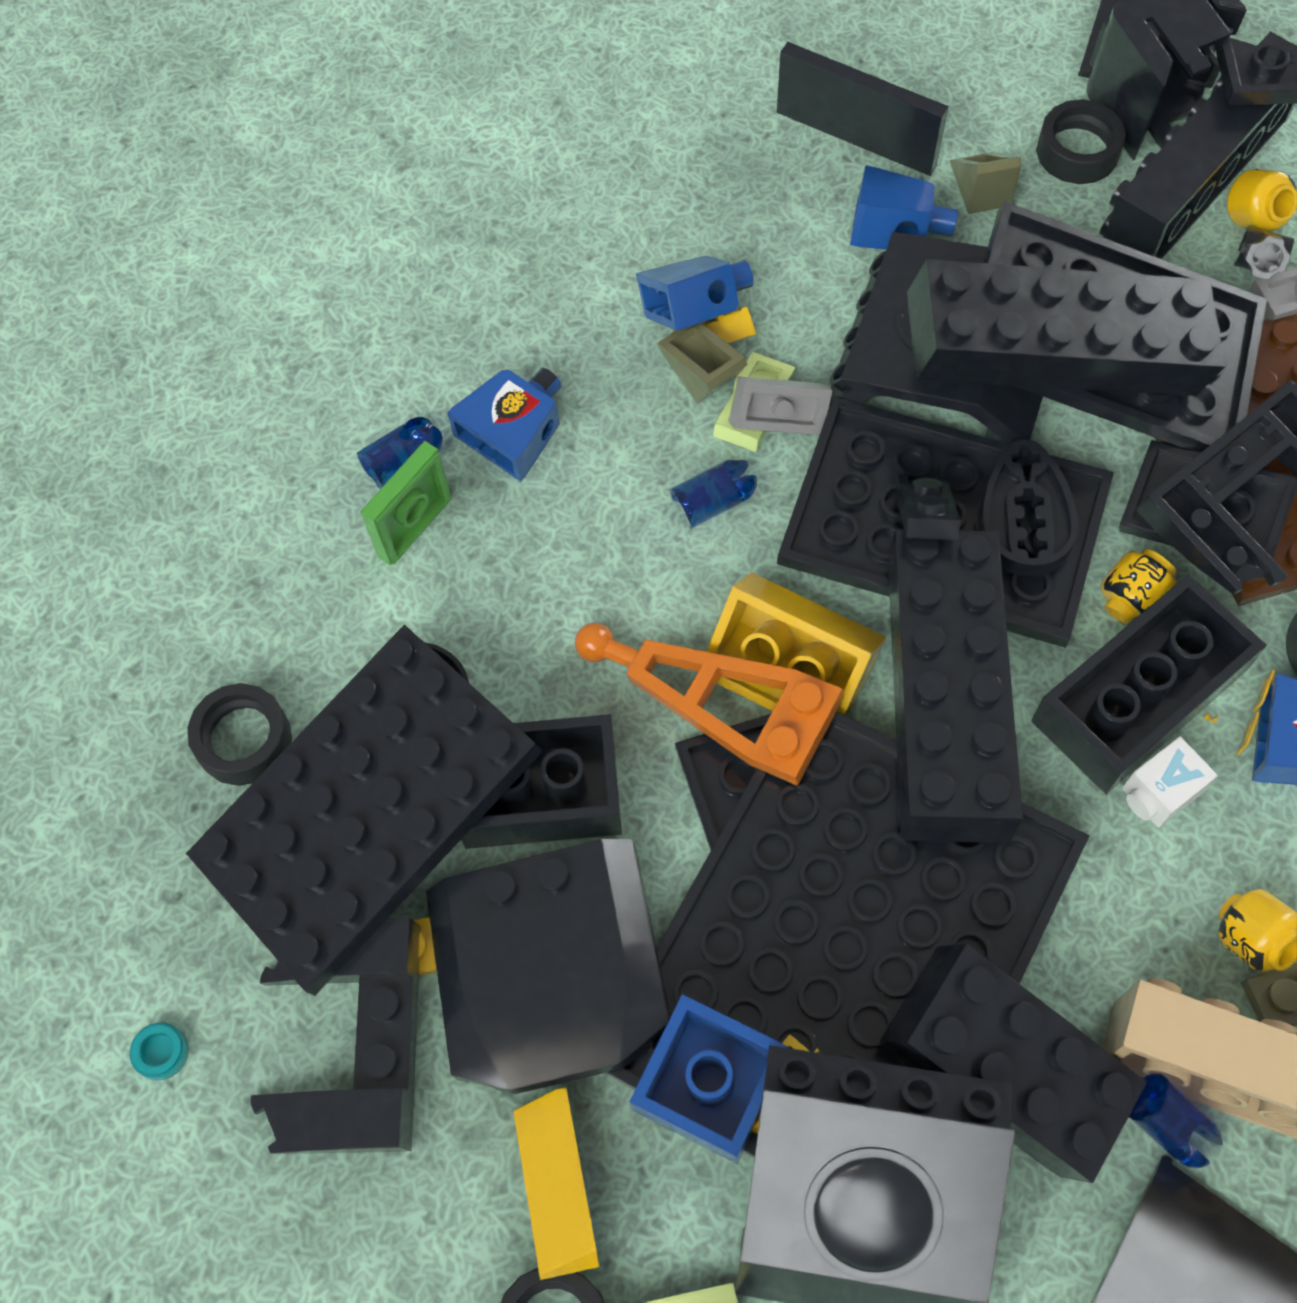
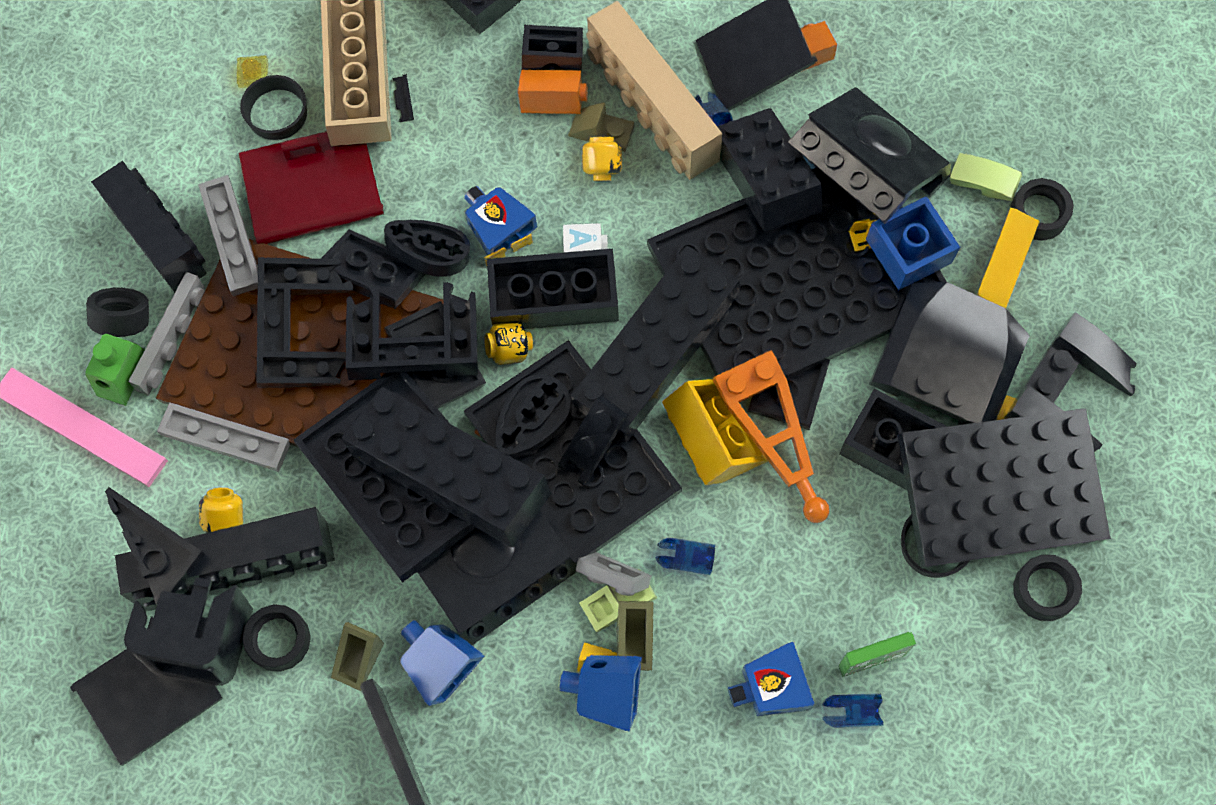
camera: 145 degrees left, 5 degrees up
(159, 1051) = (1171, 446): teal tile -> none
(1264, 252) = (254, 478): piece -> none

